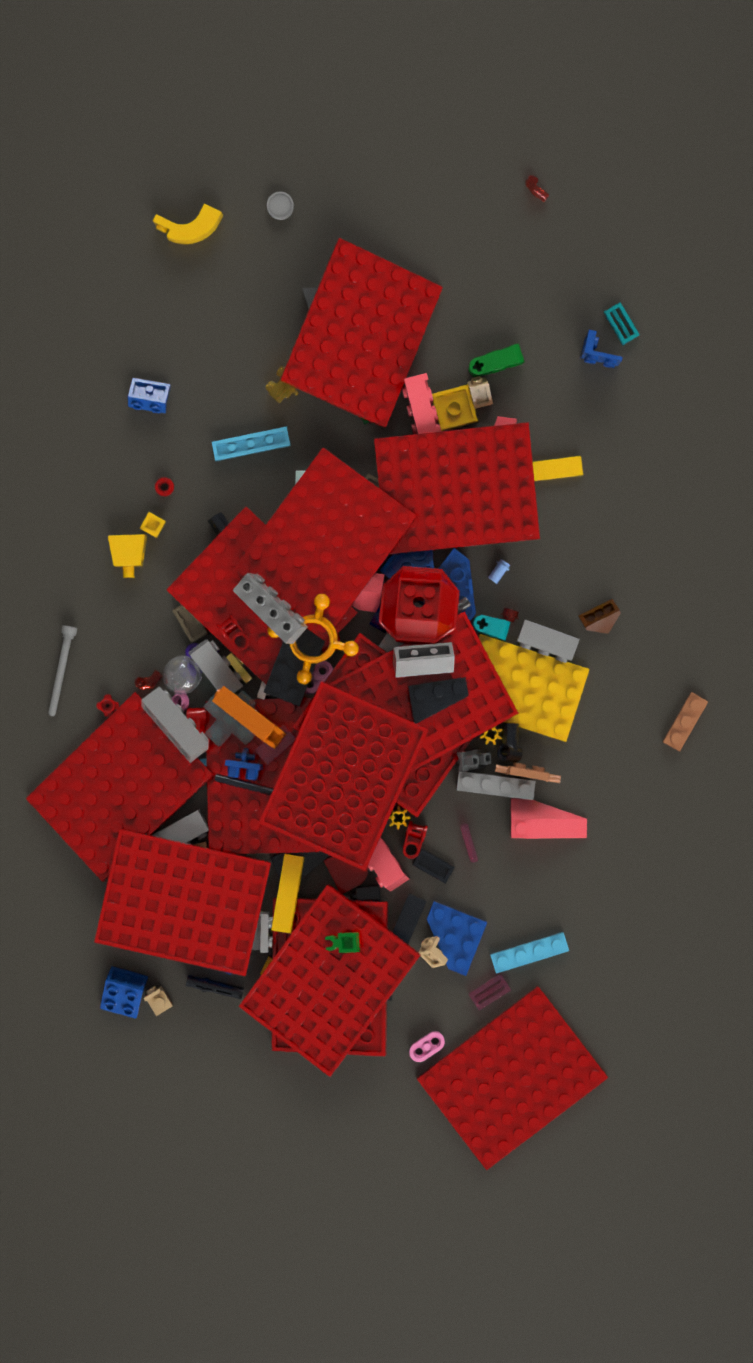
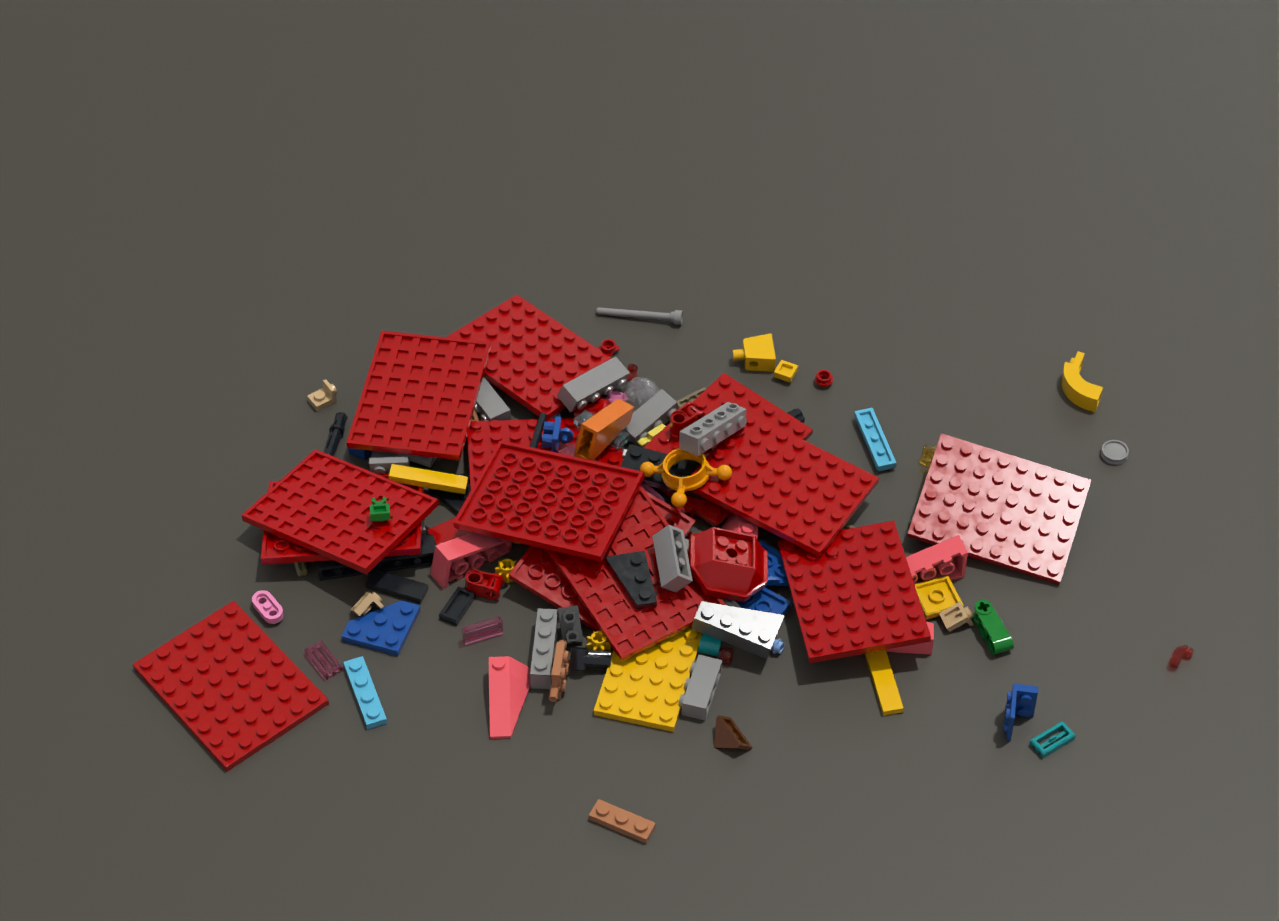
camera: 90 degrees right, 40 degrees down
(123, 992) = (336, 366): blue bracket -> none
(148, 395) = (910, 361): bracket -> none
(497, 595) = (739, 627): none -> wedge

